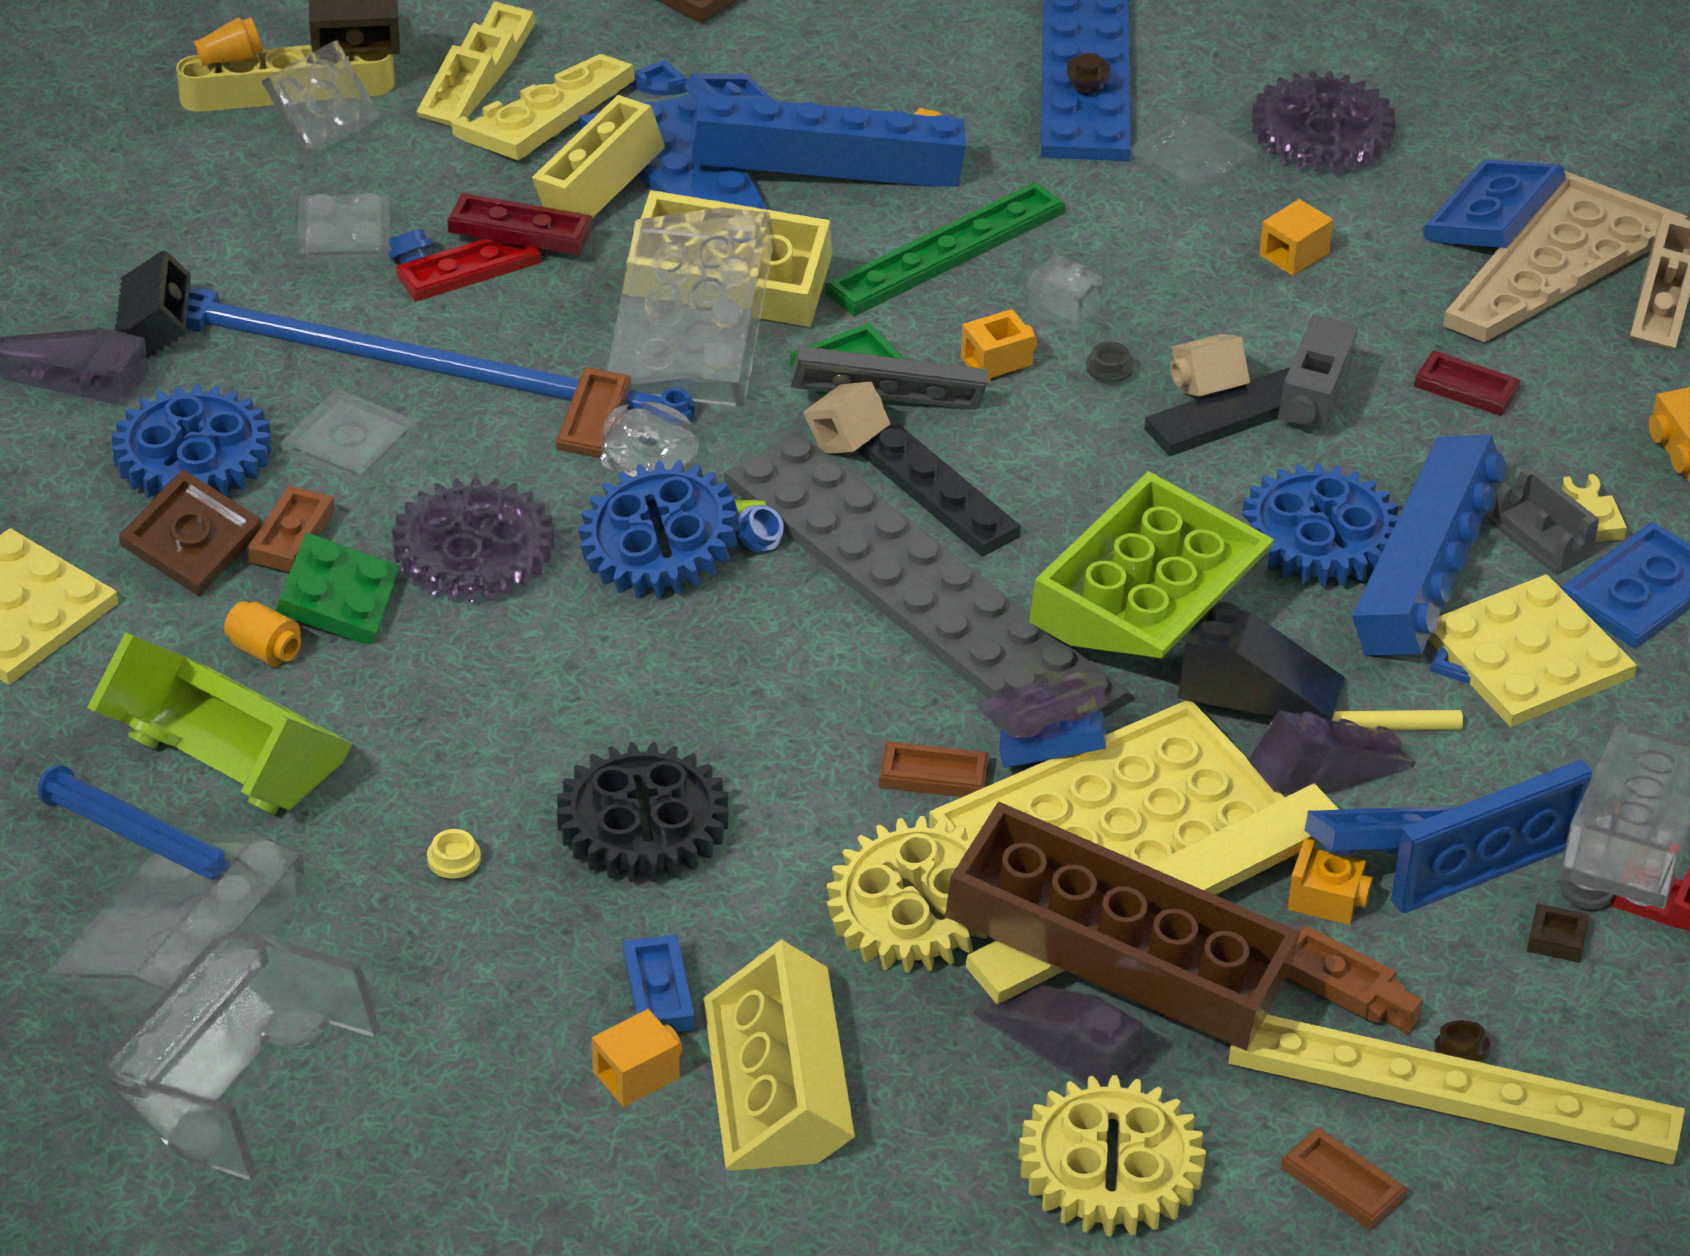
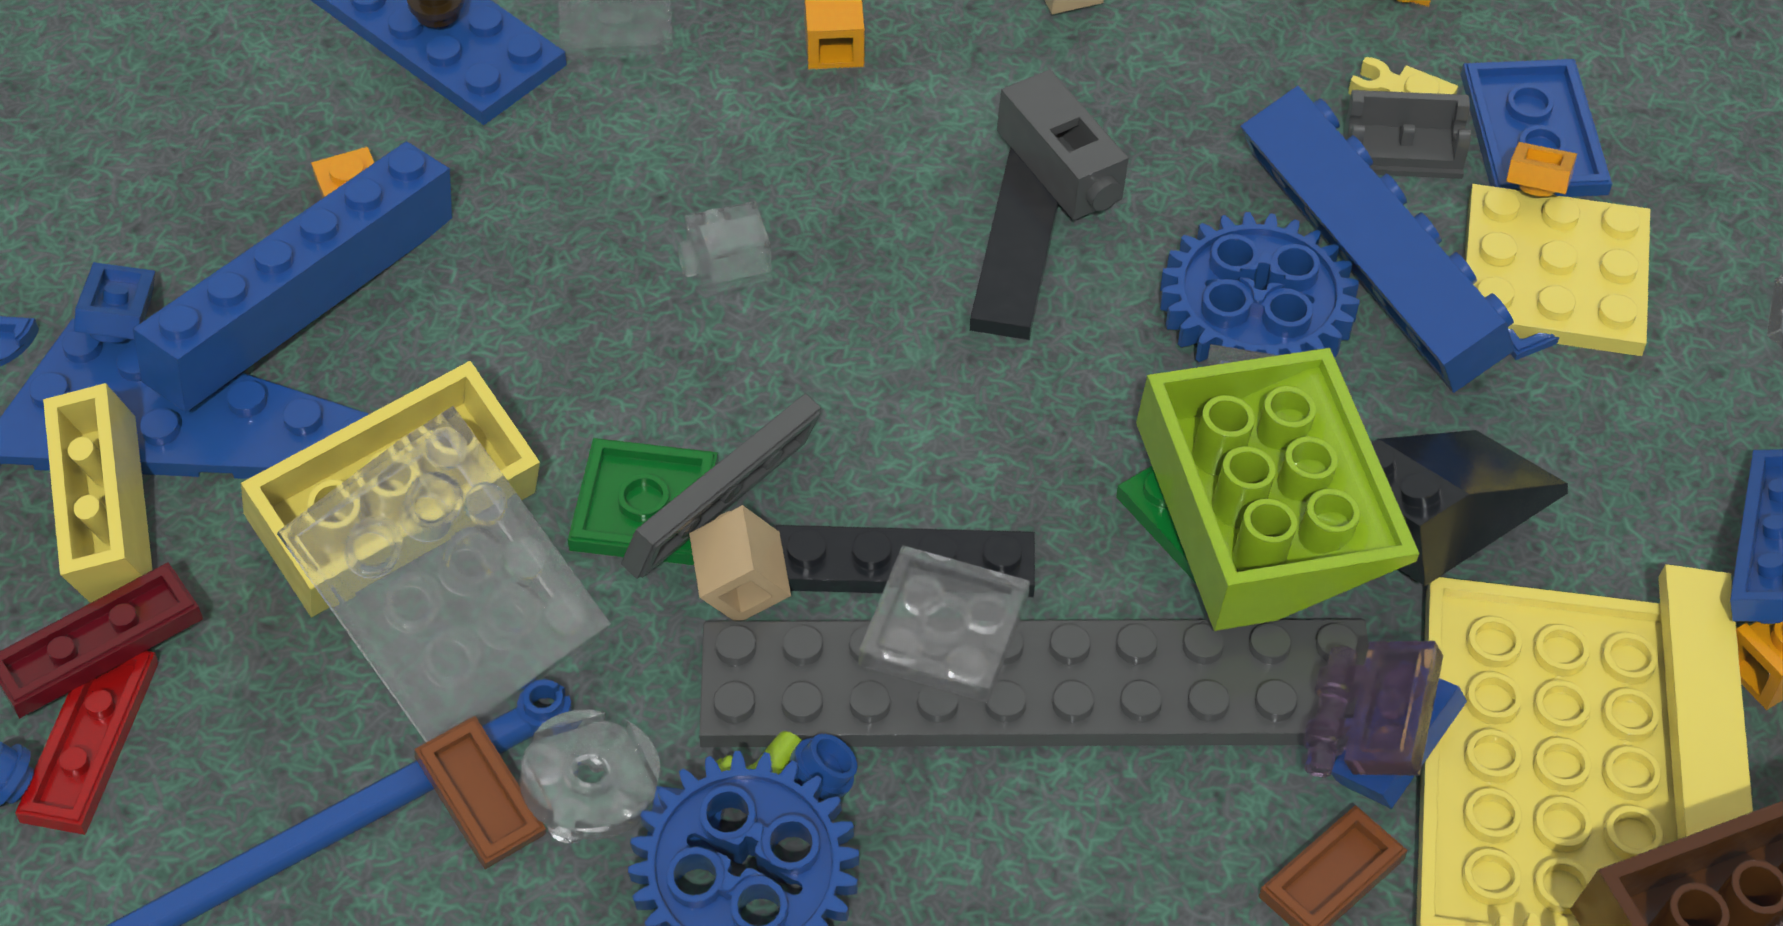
camera: 50 degrees left, 10 degrees up
(897, 509) = (944, 623): none -> clear plate
(944, 249) = (541, 294): green tile -> none
(998, 343) = (751, 359): light orange brick -> none
(1110, 362) = (859, 289): clear smoke plate -> none
(1209, 365) = (959, 214): tan brick -> none
(1326, 752) = (1604, 526): clear purple slope -> none
(1405, 719) = (1578, 425): light yellow bar -> none
(1467, 383) = (1147, 54): dark red tile -> none
(1586, 586) = (1541, 169): none -> light orange plate

